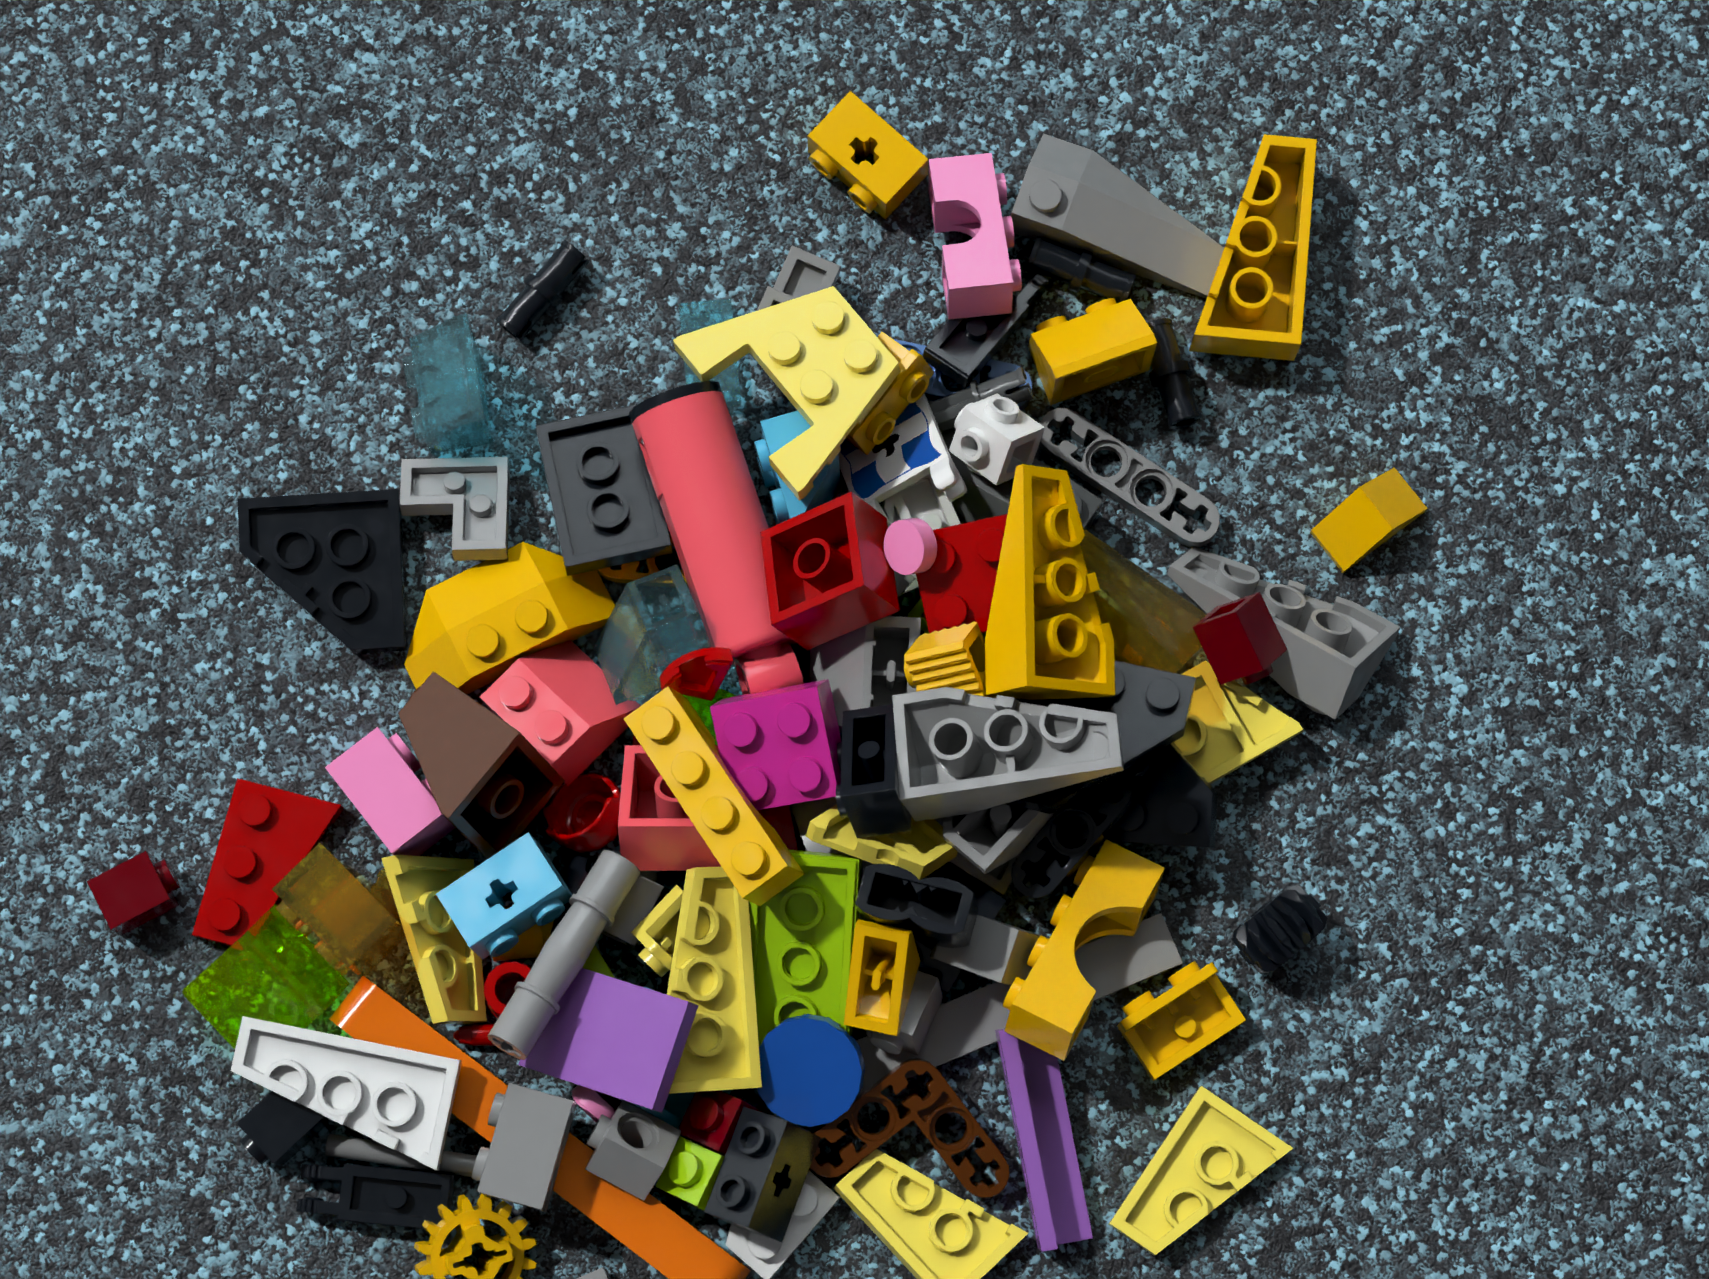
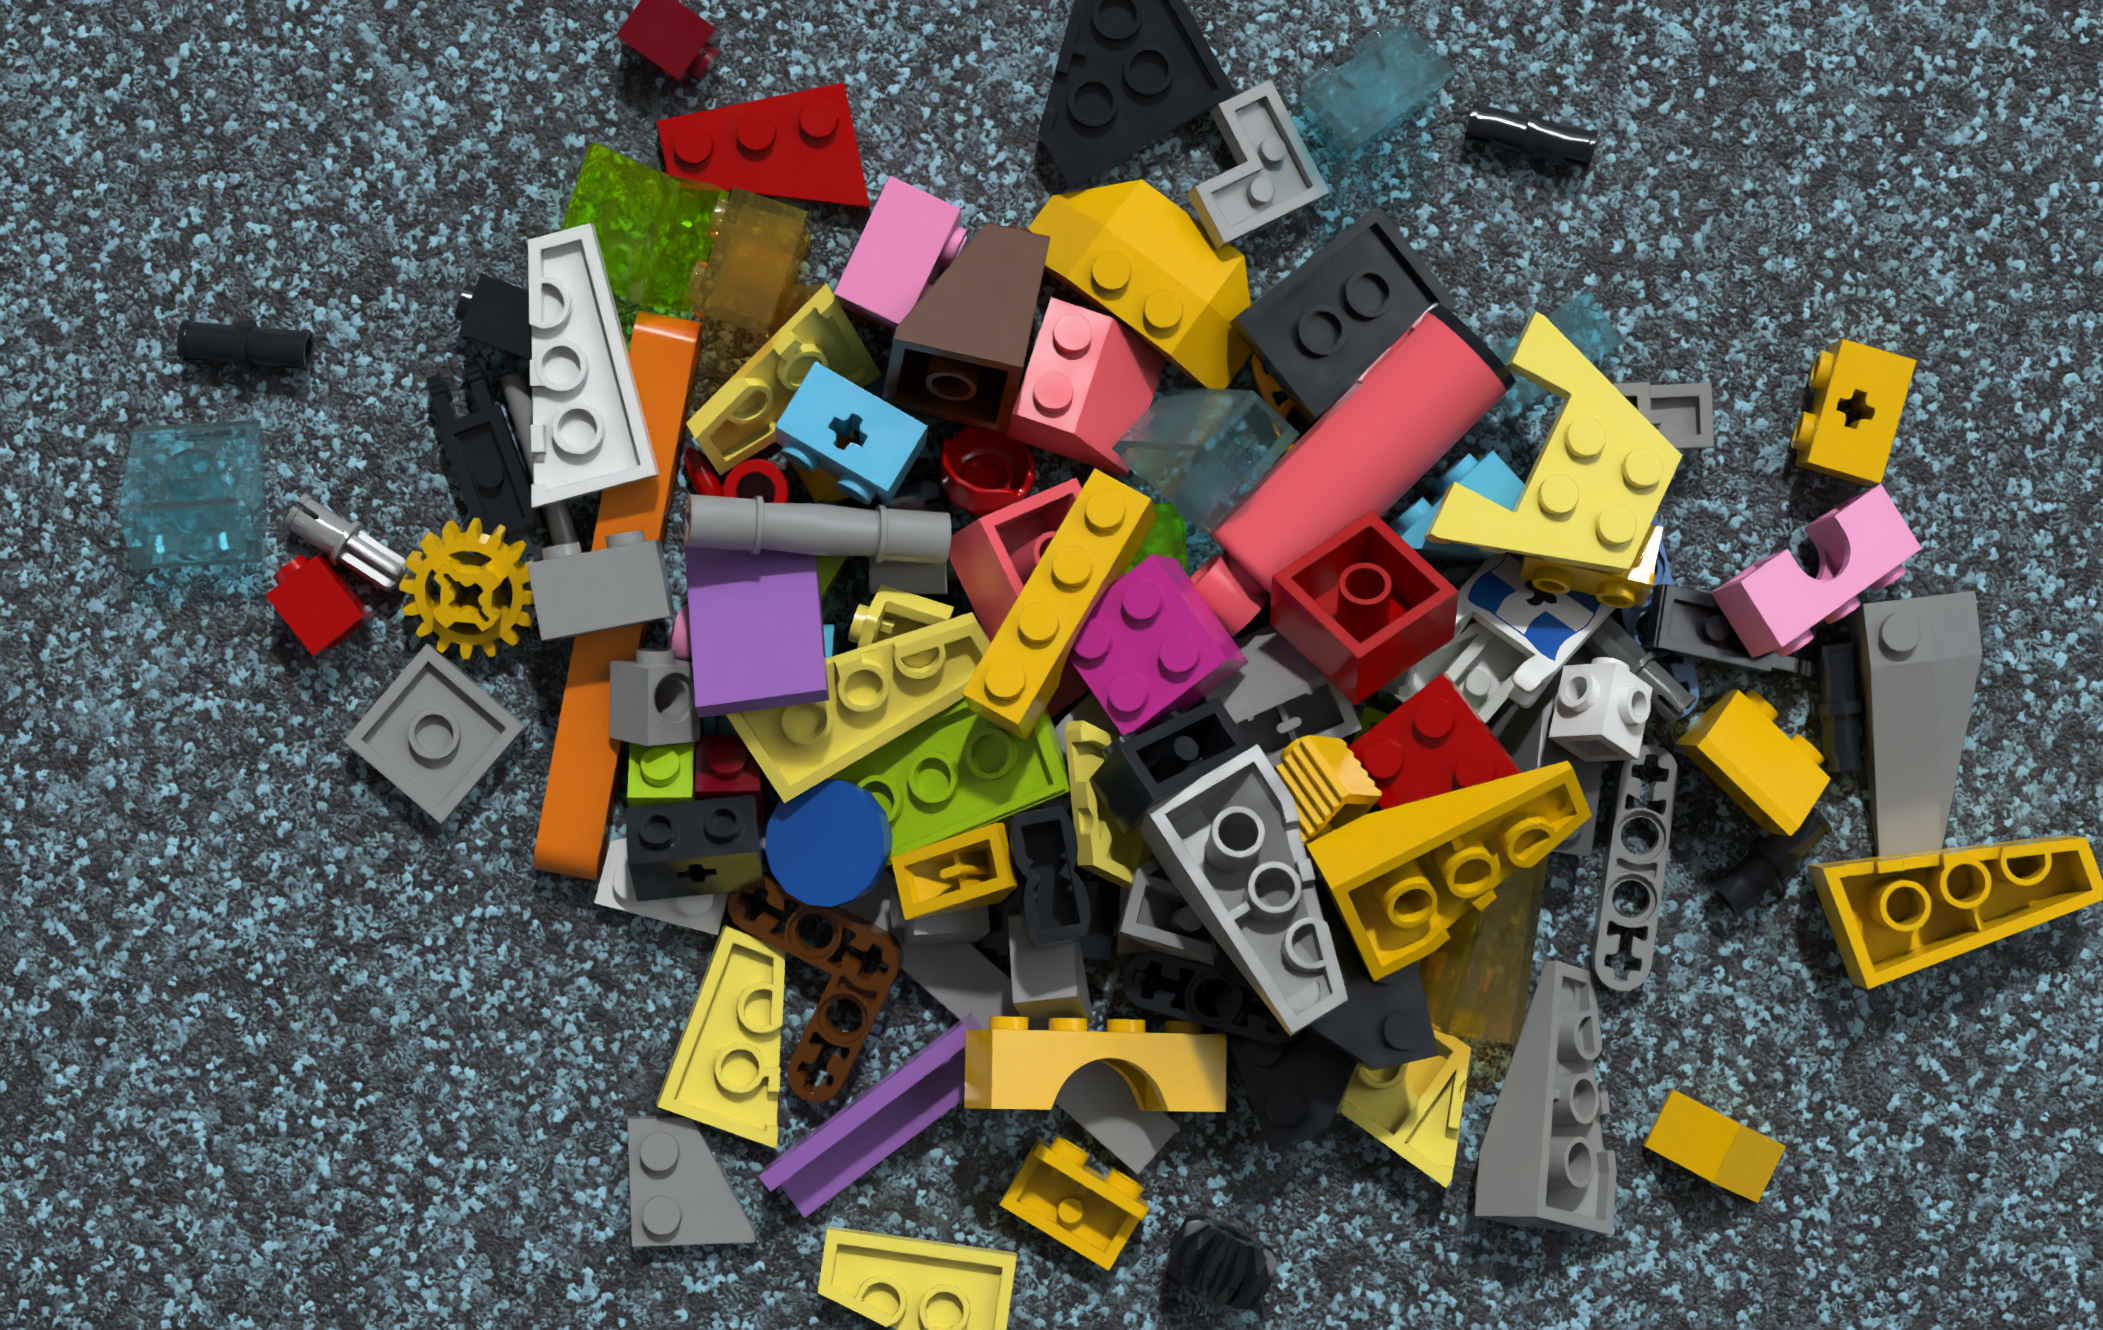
camera: 60 degrees right, 10 degrees up
(698, 672) = (1186, 519): red tile -> none
(910, 546) = (1430, 683): bright pink tile -> none
(1240, 640) = (1509, 1077): dark red brick -> none

